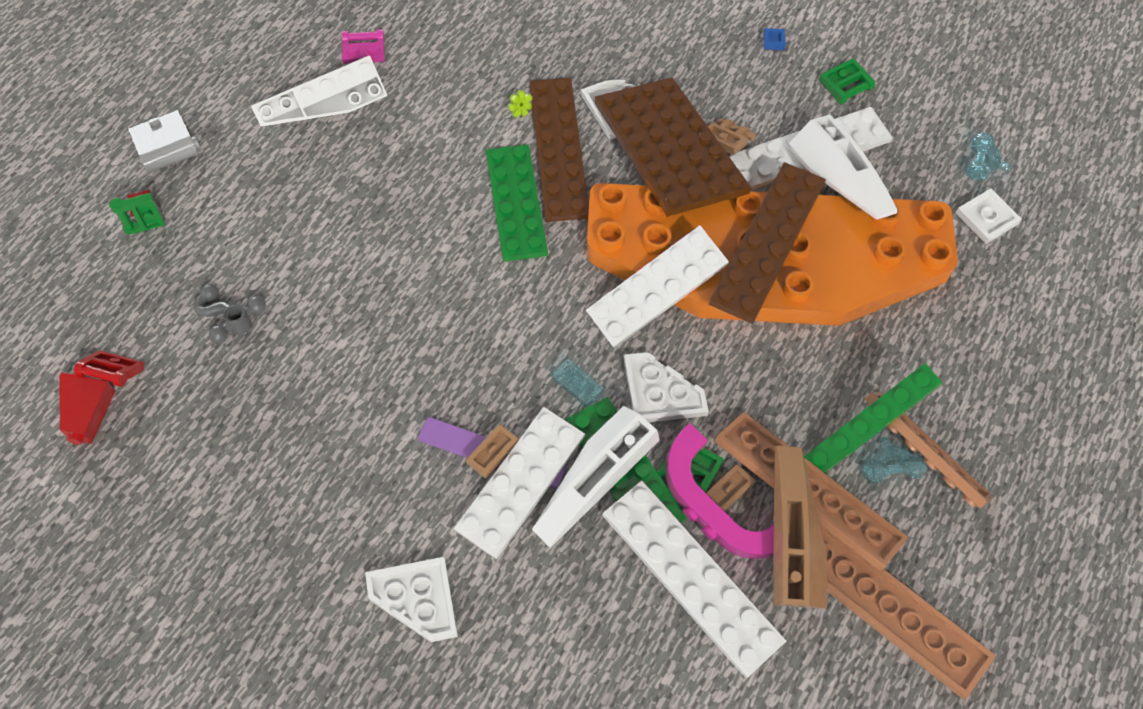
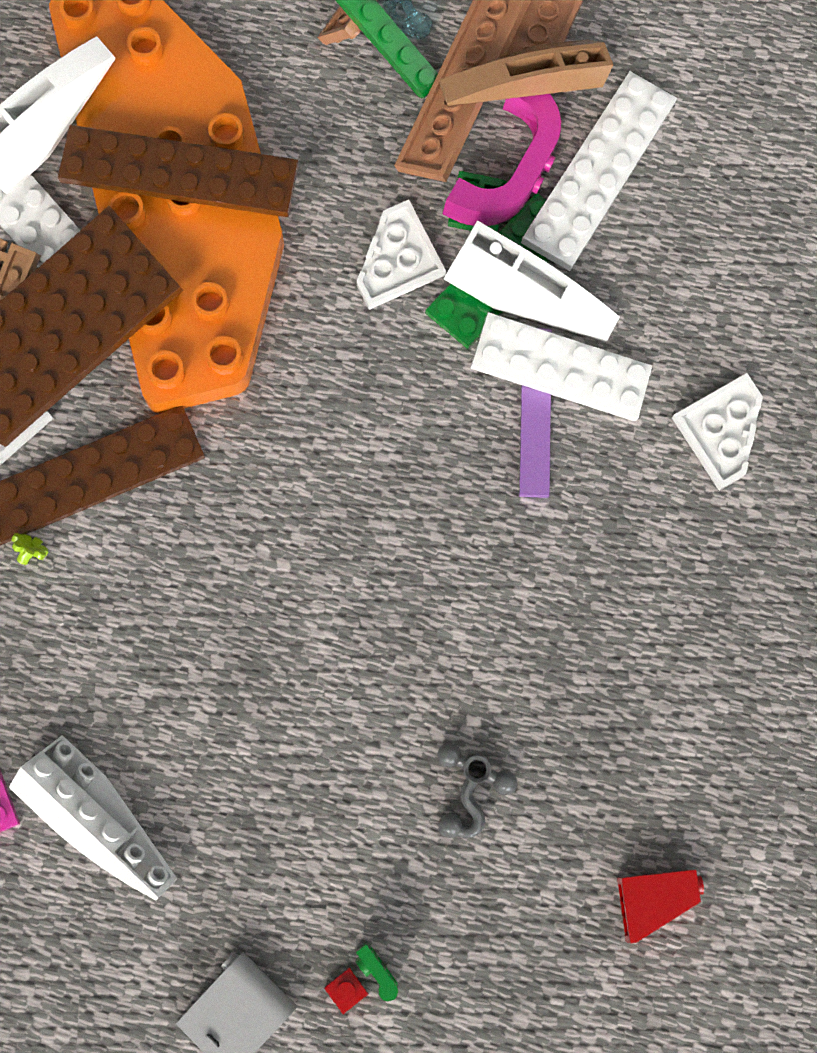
camera: 110 degrees left, 15 degrees up
(109, 367) = (590, 893): red plate -> none
(492, 451) = (540, 404): medium nougat plate -> none
(516, 203) = (186, 502): green plate -> none
(577, 383) = (420, 347): clear light blue plate -> none
(657, 286) = (274, 284): white plate -> none
(731, 487) = (489, 159): medium nougat plate -> none

